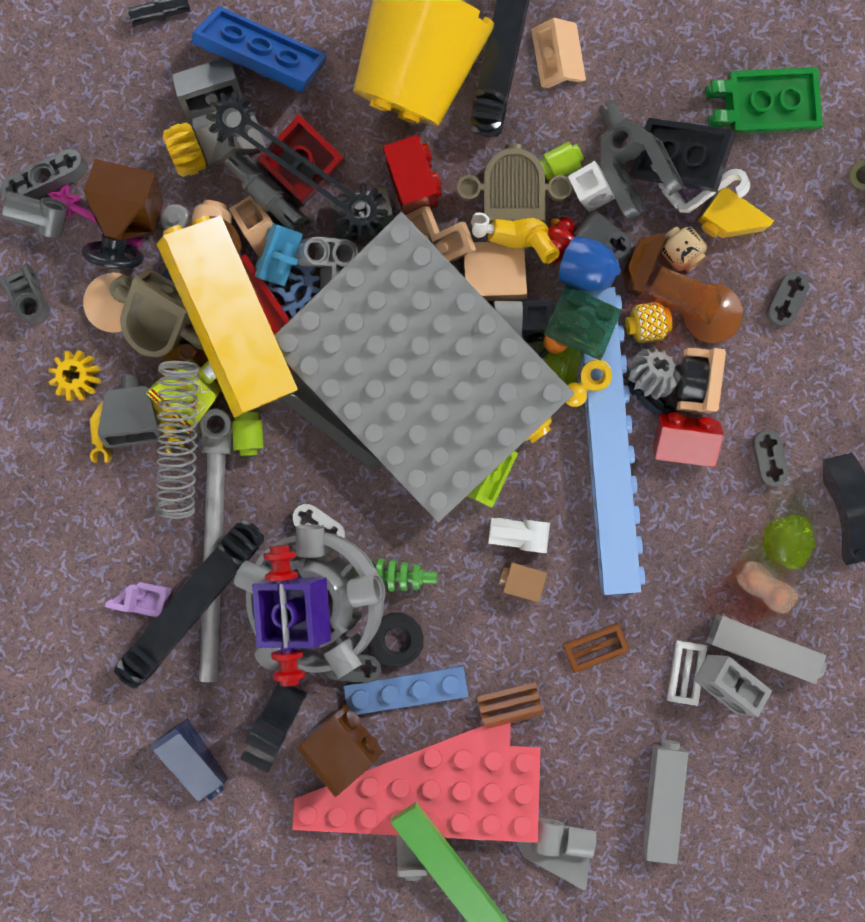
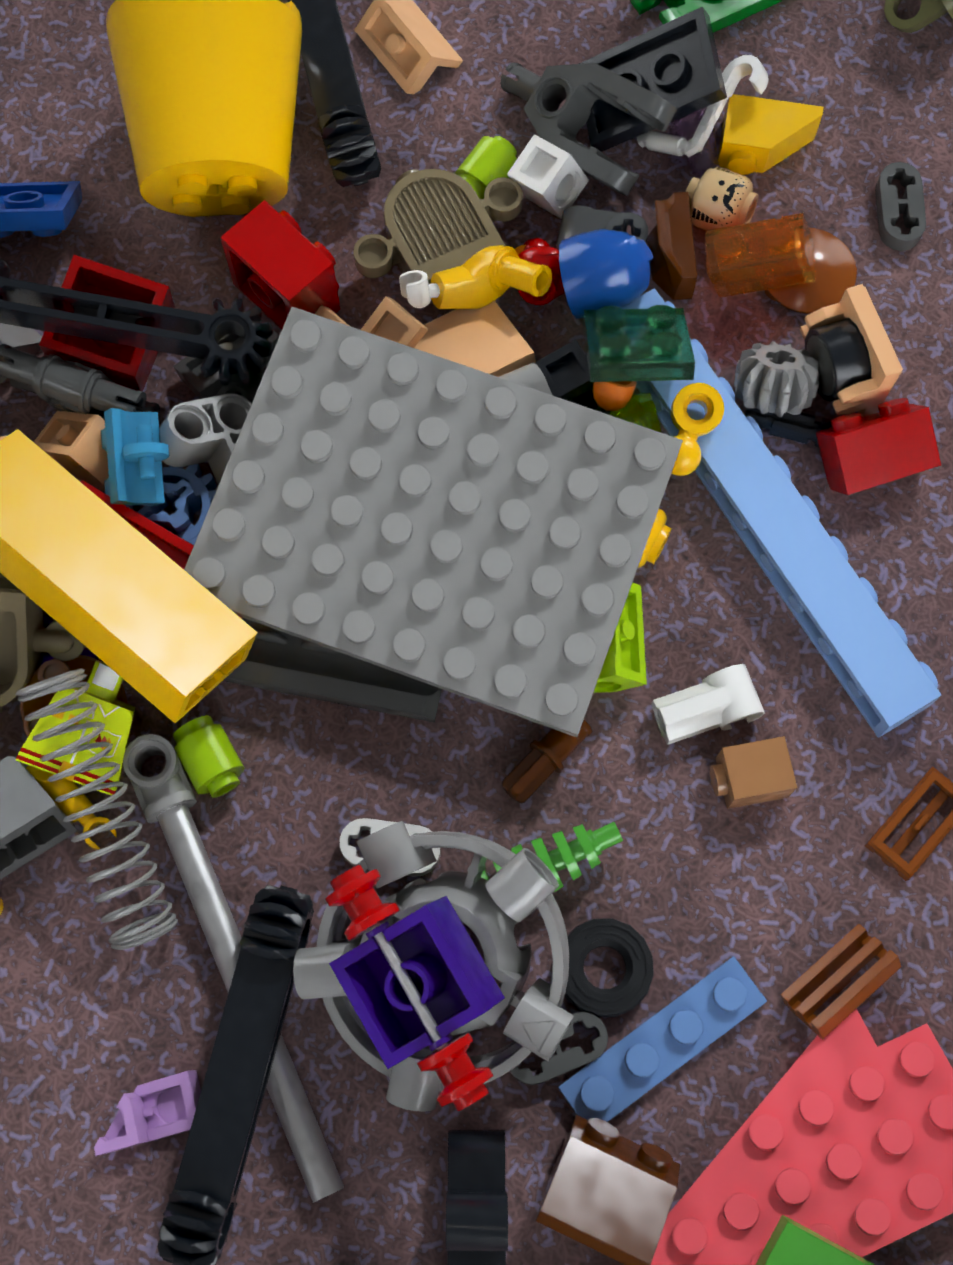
camera: 30 degrees left, 15 degrees down
(414, 521) = (541, 762): none -> reddish brown axle
(649, 322) = (728, 317): yellow head -> none

